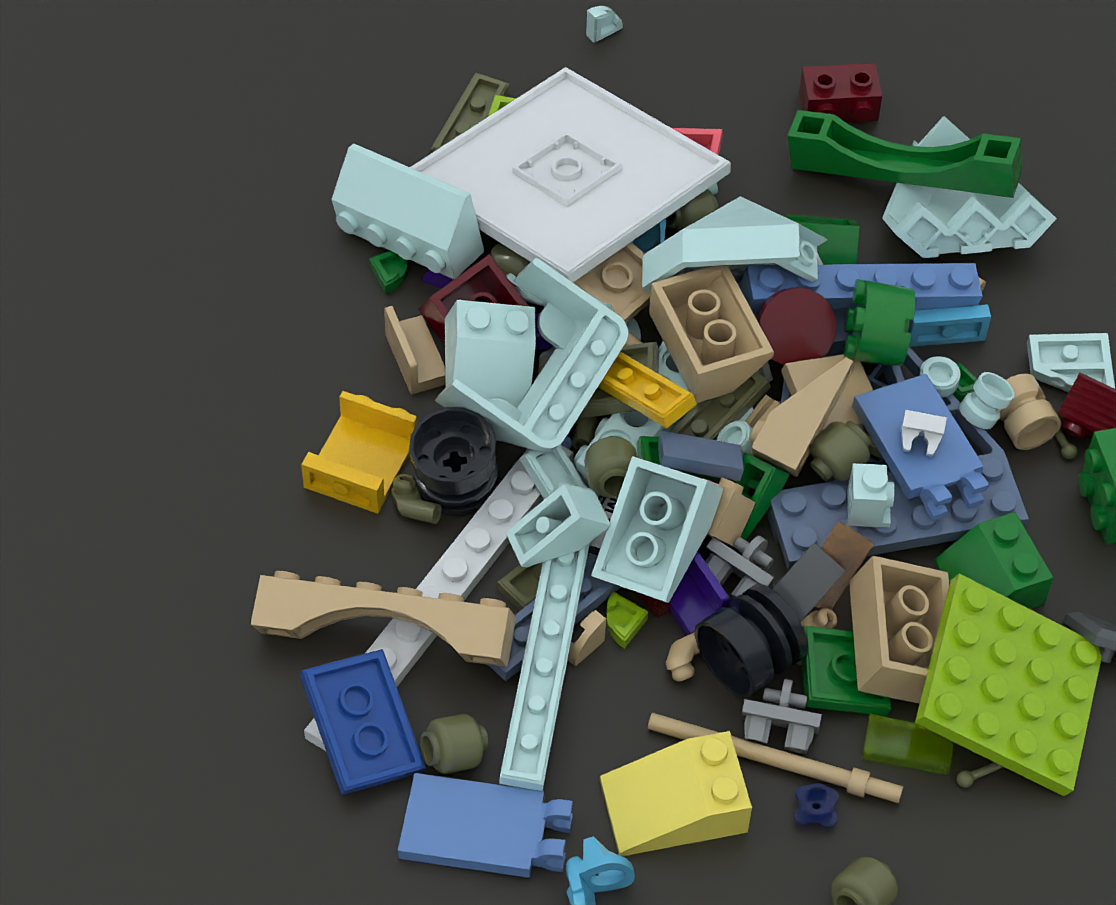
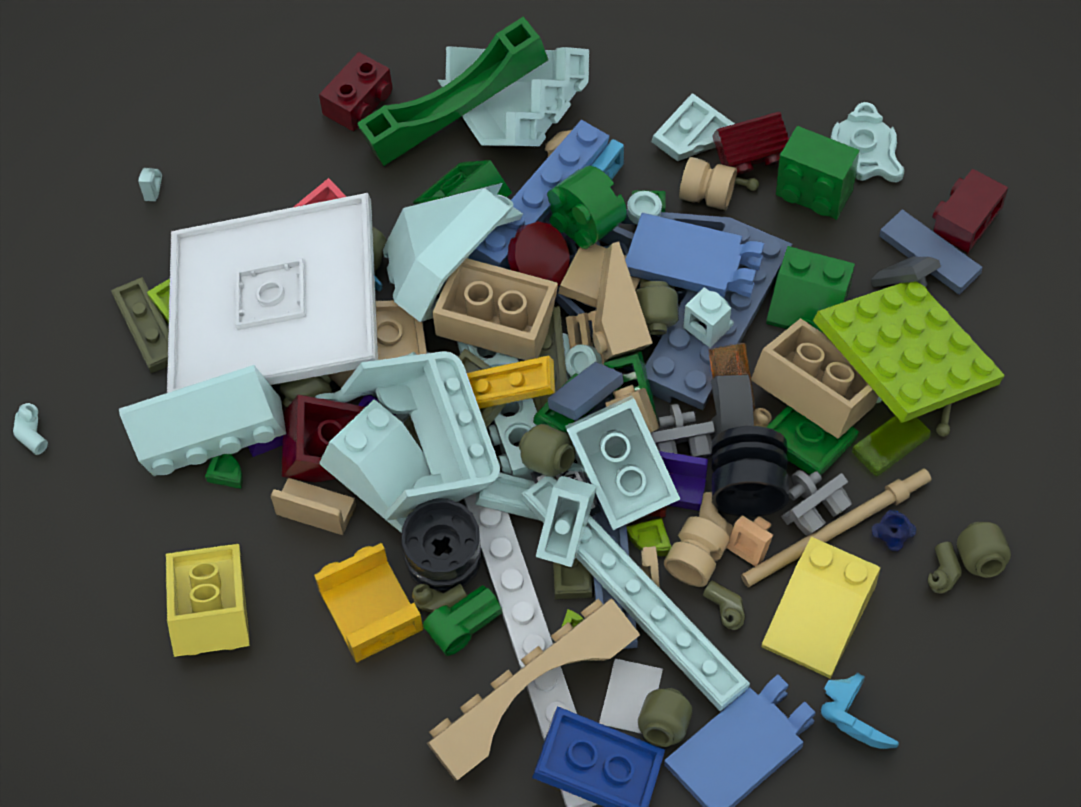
camera: 45 degrees left, 5 degrees up
(256, 339) = (206, 600): none -> light yellow slope
(298, 111) = (26, 429): none -> light aqua arm
(396, 527) = (454, 625): none -> green piece
(467, 697) = (627, 692): none -> white sticker
(614, 725) = (730, 605): none -> olive arm
(636, 658) = (696, 554): none -> tan wheel
(692, 694) = (750, 539): none -> light nougat tile
(815, 880) = (949, 570): none -> olive arm
(925, 425) = (688, 247): white tile -> none
(989, 397) = (689, 196): light aqua wheel -> none

